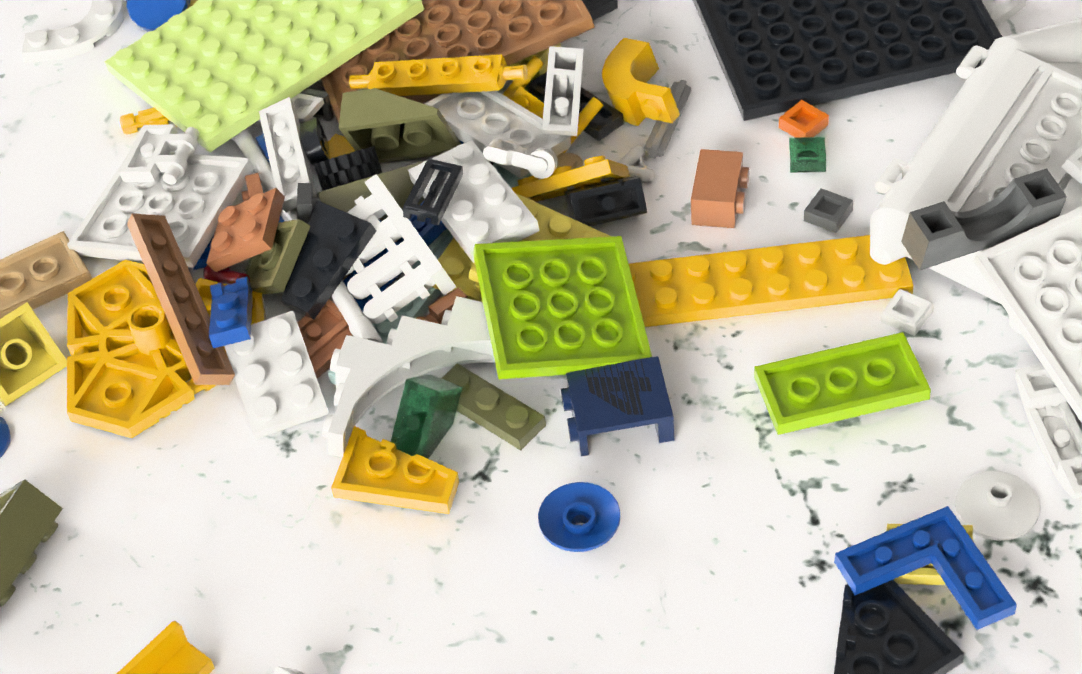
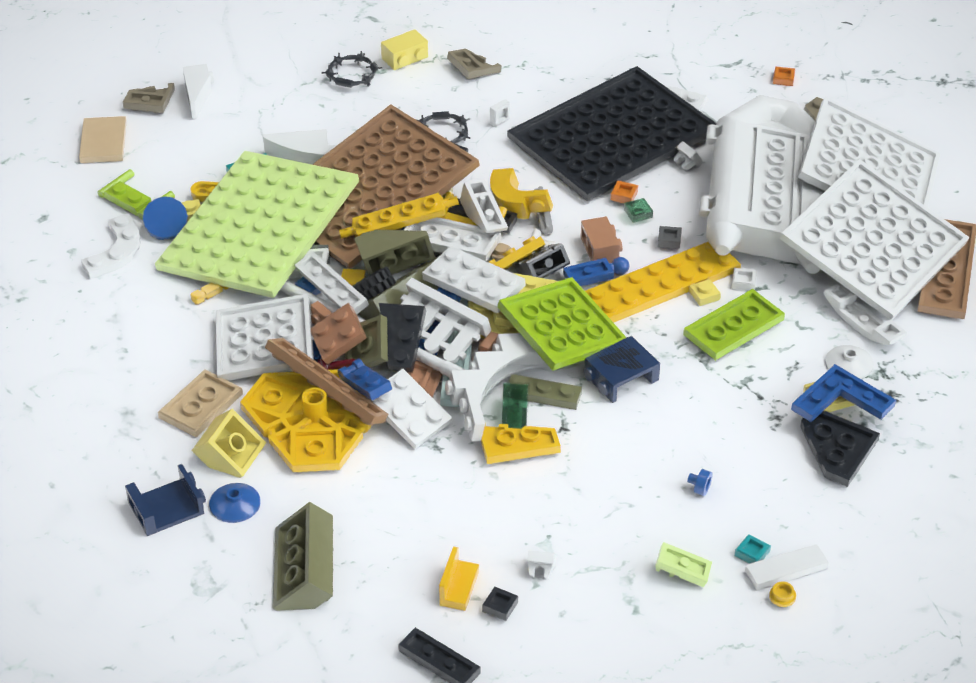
camera: 30 degrees left, 5 degrees down
(151, 154) = (239, 308): white plate -> none
(305, 202) = (368, 308): dark grey plate -> none
(314, 141) = (344, 271): black beam -> none
(425, 210) = (454, 288): black tile -> none
(540, 163) = (499, 248): white piece -> none
(579, 504) = (638, 430): blue dish -> none
(622, 639) = (701, 481): none -> blue tile
(681, 235) = (596, 270): none -> blue plate
(830, 316) = (704, 292): none -> light yellow plate
(933, 88) = (688, 155): none -> white tile
(940, 235) = (762, 225): dark grey arch -> none

